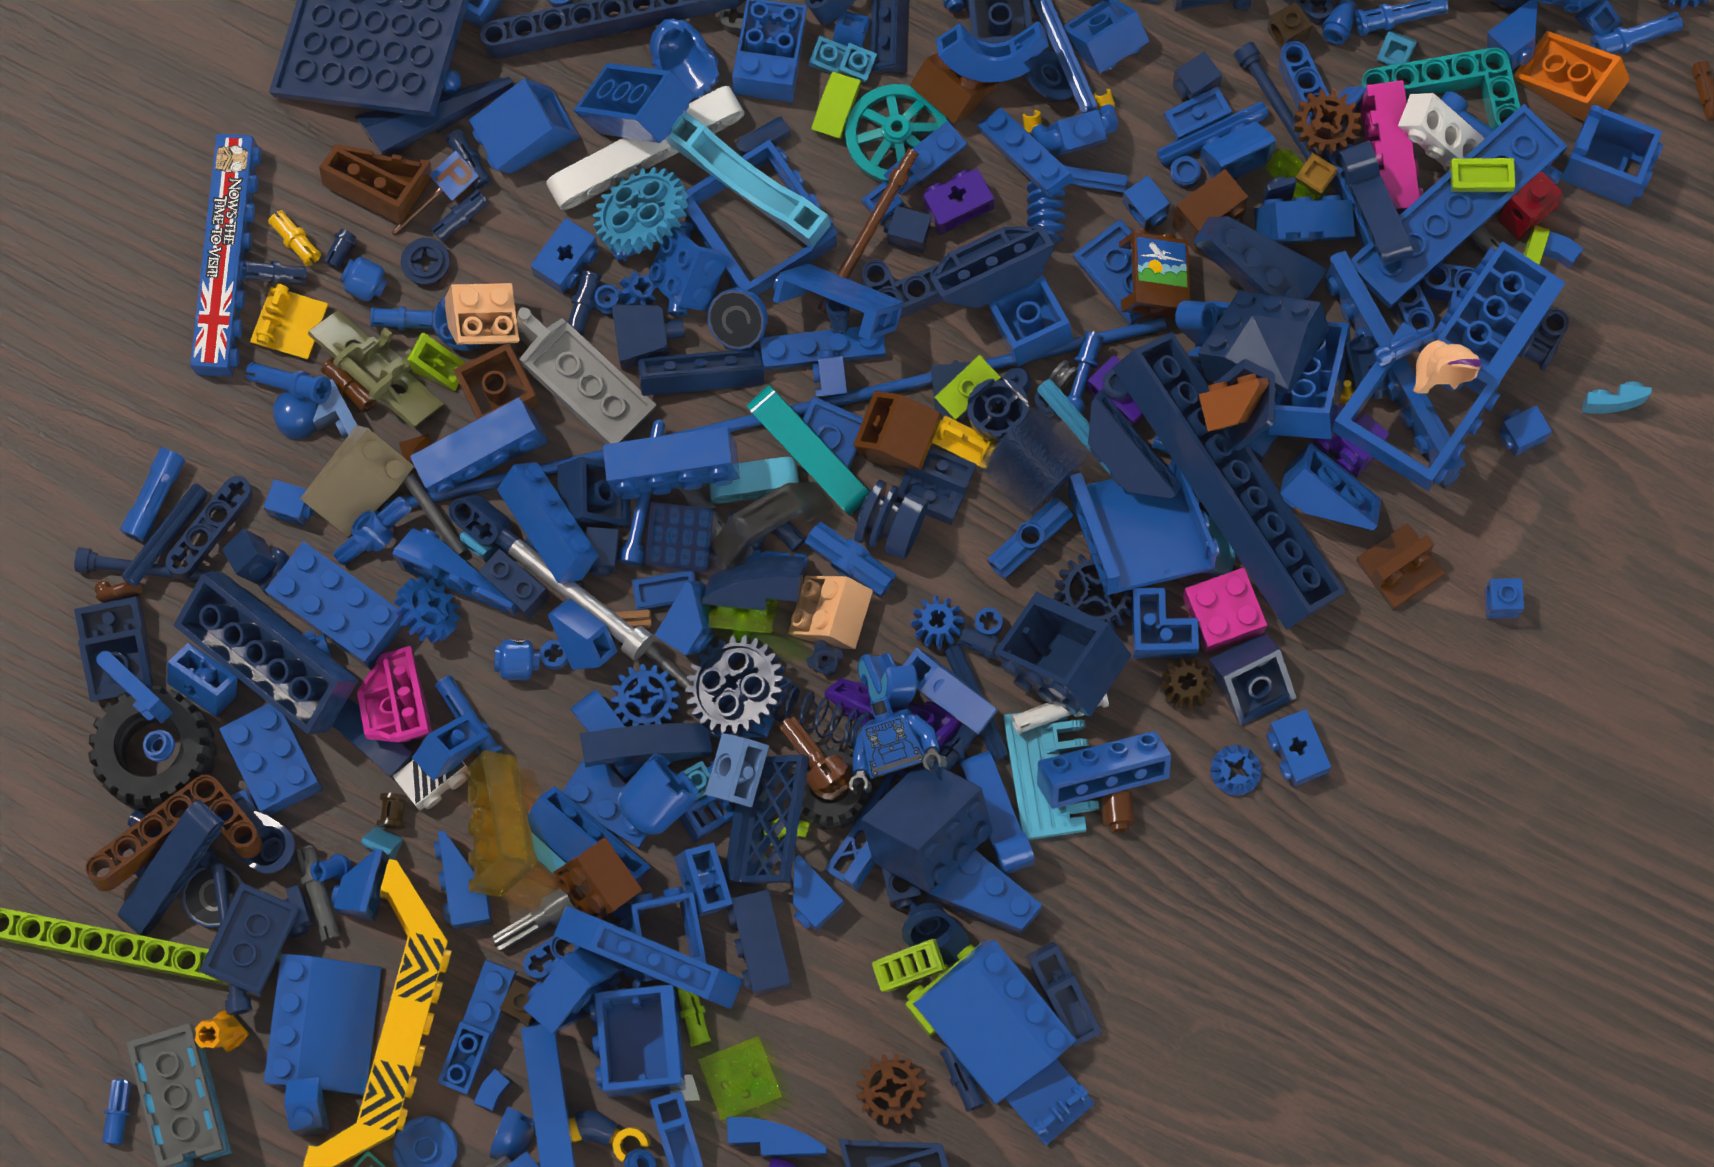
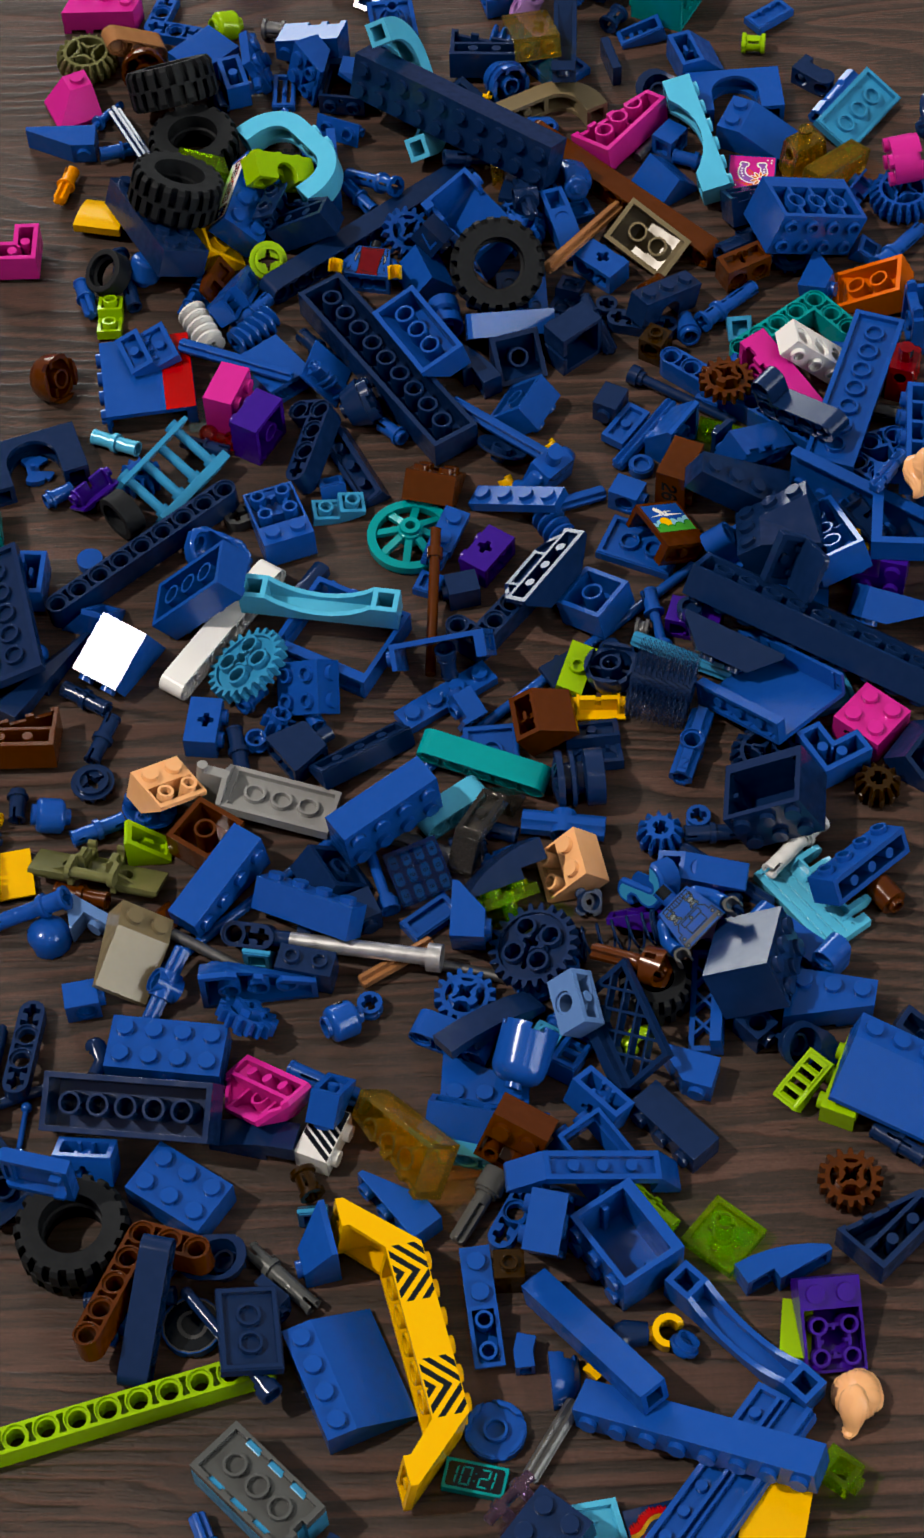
camera: 30 degrees left, 20 degrees down
(152, 629) = (26, 1108): none -> blue hinge
(152, 742) = (77, 1211): blue plate -> none
(220, 1031) = (266, 1424): light orange piece -> none
(249, 556) = (73, 1050): dark blue brick -> none
(306, 1107) = (378, 1443): blue slope -> none
(335, 867) = (283, 1249): blue pin -> none
(452, 177) = (80, 713): piece -> none
(535, 66) = (90, 616): none -> blue slope
(582, 636) = (388, 973): blue slope -> none
(737, 318) = (369, 703): black tile -> none
(836, 105) = (353, 537): lime slope -> none
(990, 61) = (457, 450): blue arch -> none
(1233, 404) = (789, 565): dark orange slope -> none
(1316, 174) = (741, 415): pearl gold tile -> none
(1482, 175) = (859, 360): lime tile -> none

